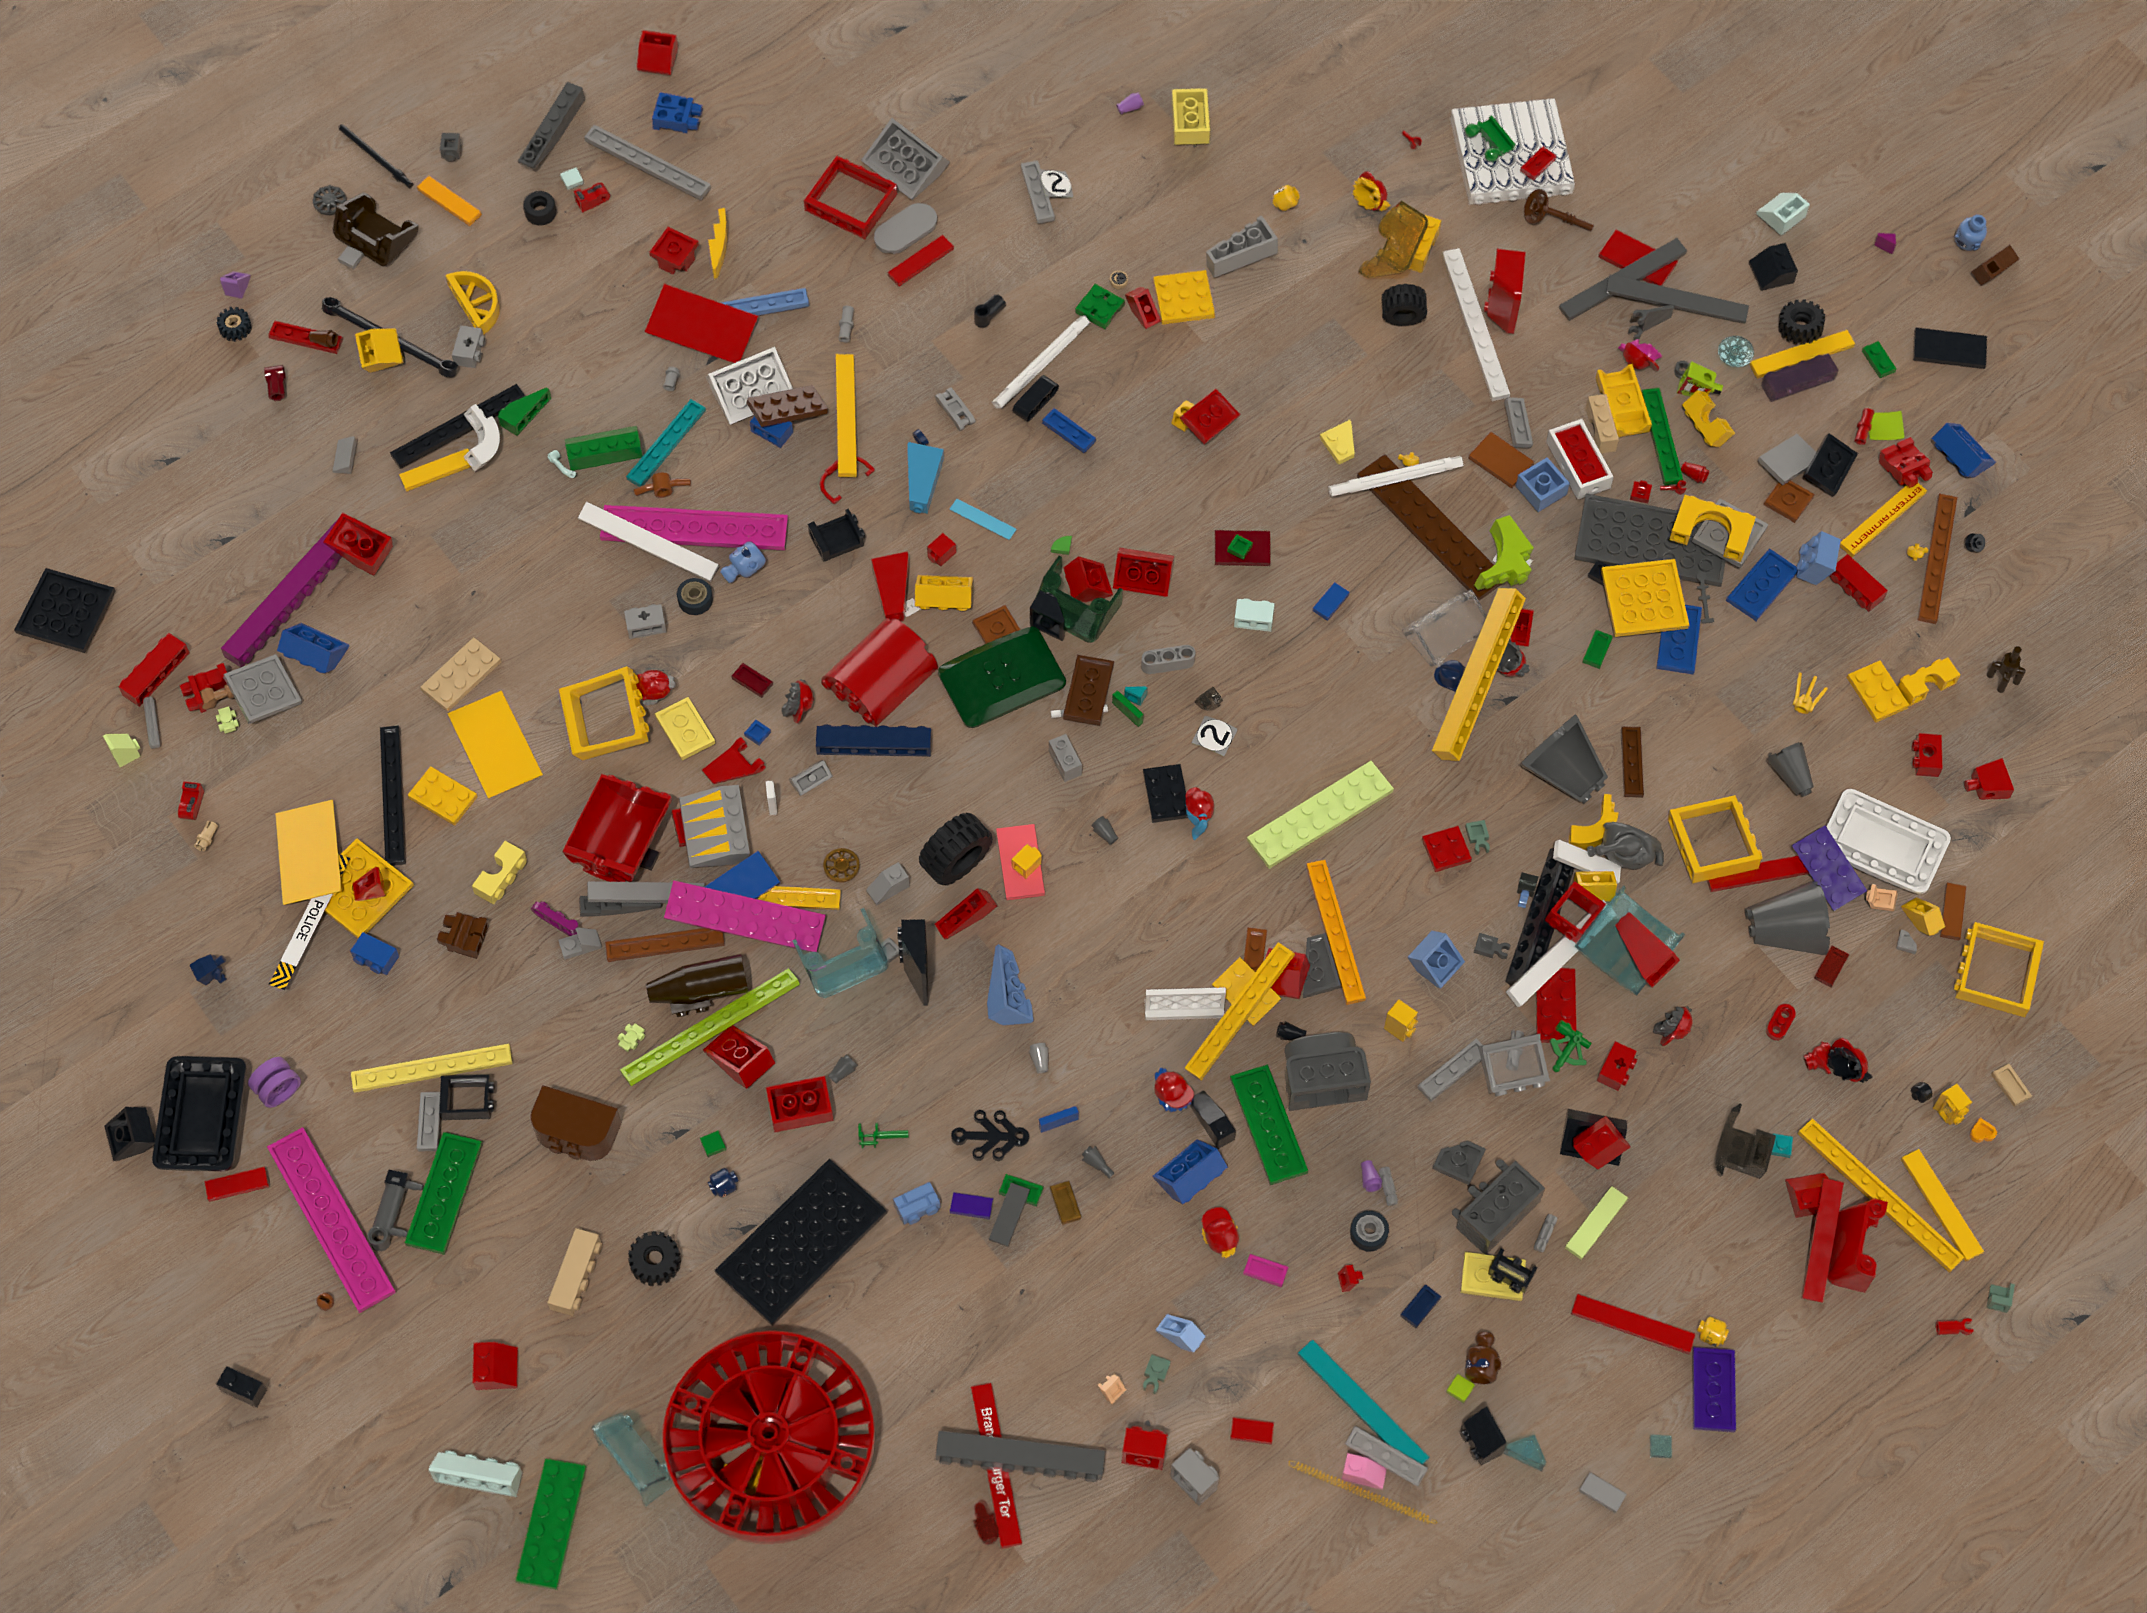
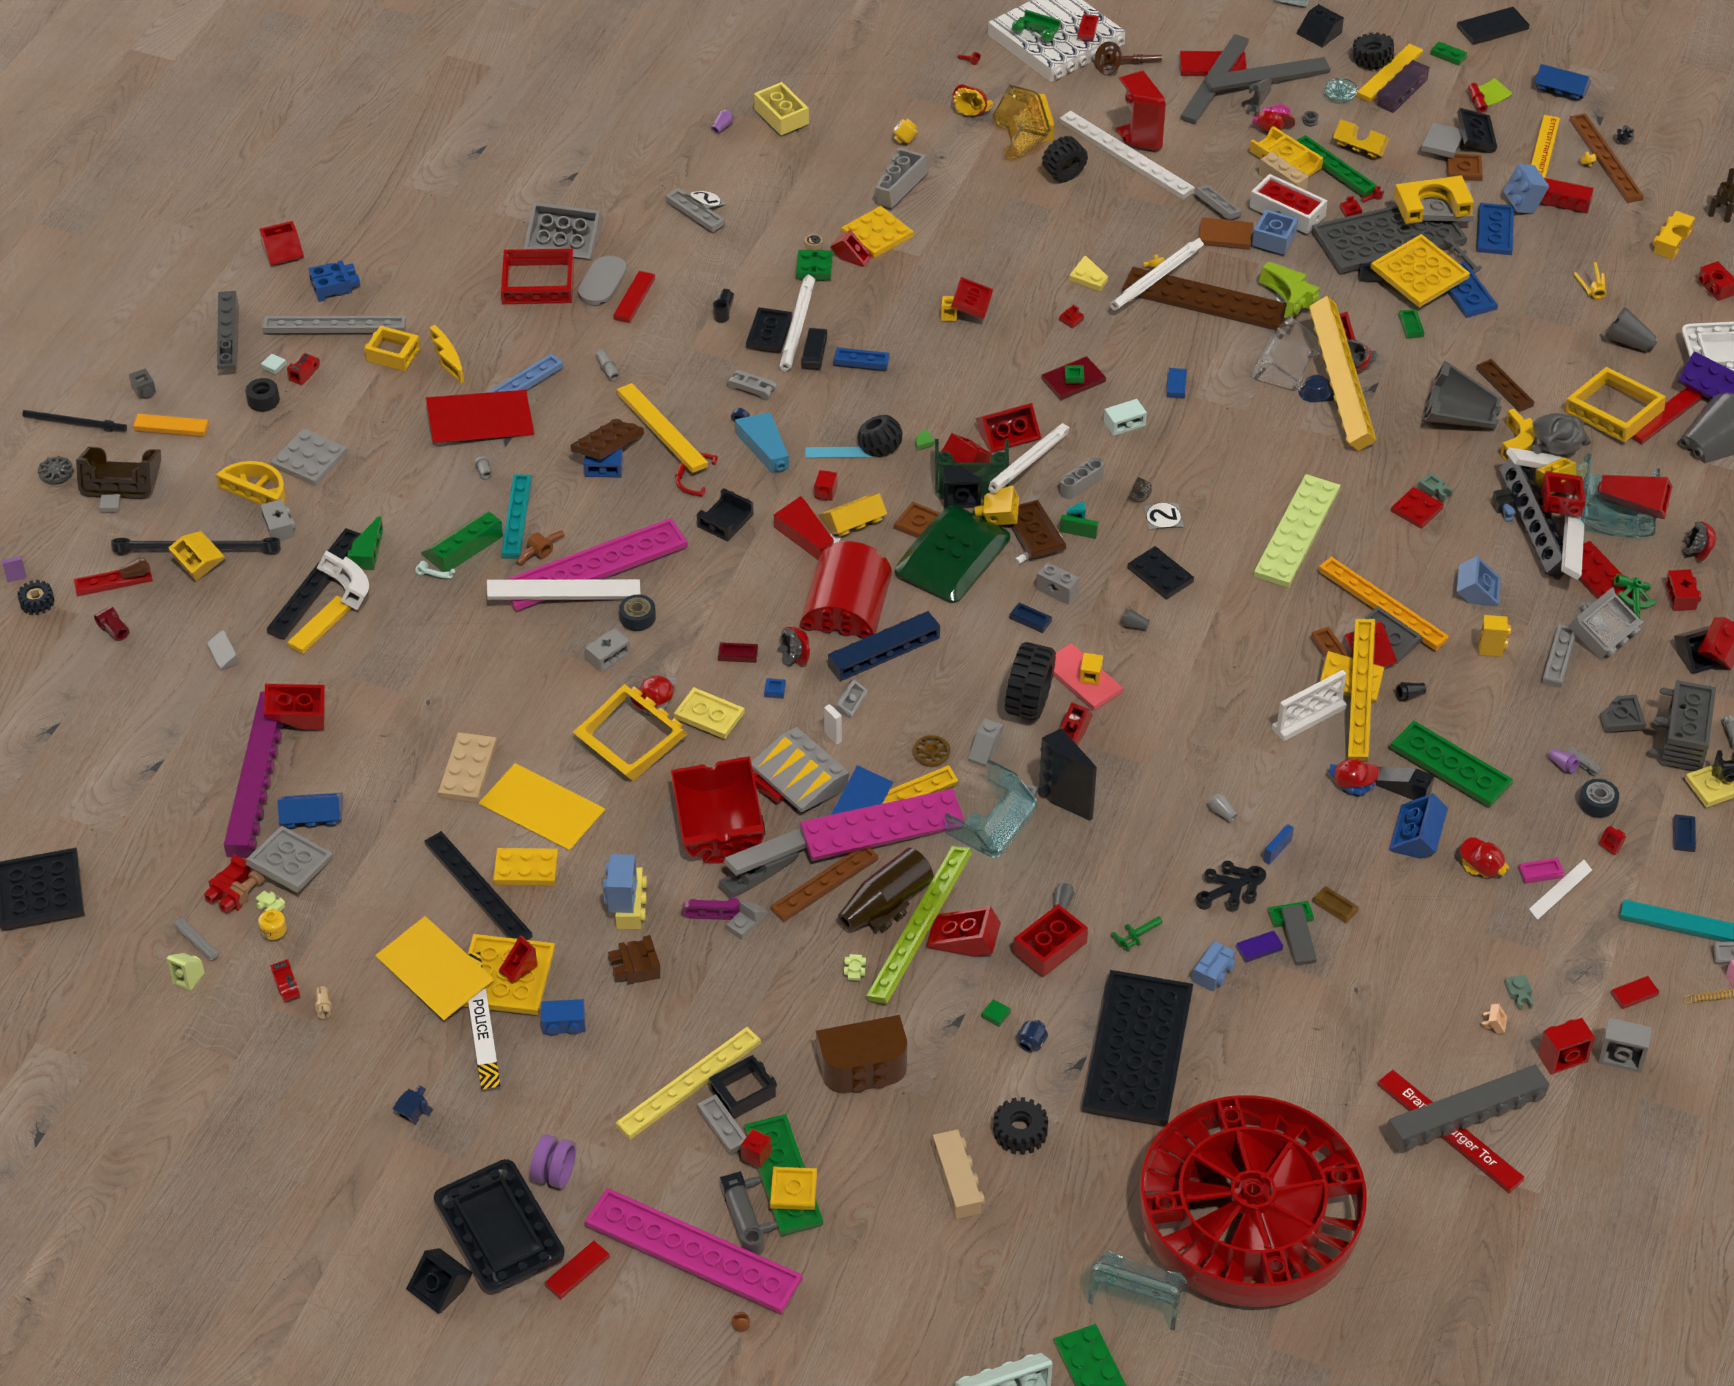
camera: 30 degrees left, 15 degrees down
(153, 669) = (166, 894): red brick -> none
(212, 743) = (272, 924): none -> yellow head
(431, 1161) = (756, 1148): none -> red brick
(438, 1211) = (793, 1188): none -> yellow tile
(487, 861) = (620, 883): none -> medium blue brick
(495, 1366) = (944, 1288): red slope -> none
(538, 292) = (309, 457): none -> light grey plate
(674, 251) = (413, 373): red panel -> none
(687, 224) = (390, 359): none -> yellow window
(732, 765) = (773, 721): red flag -> none
(745, 561) = (661, 567): medium blue piece -> none
(746, 379) = (550, 442): white slope -> none
(985, 1525) = (1482, 1178): clear red arm -> none
(1006, 996) = (1154, 775): medium blue wedge -> none
(1010, 357) = (769, 329): none -> black plate
(1020, 778) = (1030, 617): none -> dark blue tile
(1023, 522) = (880, 435): none -> black wheel
(1071, 653) = (1000, 507): none -> yellow torso
(1094, 1159) = (1333, 859): dark grey cone -> none
(1132, 616) = (1028, 458): none -> white piece
(1181, 1332) = (1516, 948): light blue slope -> none
(1199, 809) = (1202, 568): red hair -> none
(1269, 1297) = (1560, 889): none -> white sticker
(1289, 481) = (1071, 317): none -> red tile
(1325, 1071) = (1468, 695): dark grey brick -> none
(1488, 946) = (1511, 557): dark grey plate -> none
(1695, 472) = (1381, 177): red cone -> none
(1698, 378) = (1329, 116): lime torso -> none
(1878, 691) = (1642, 259): yellow plate -> none
(1905, 463) = (1531, 105): red hips -> none

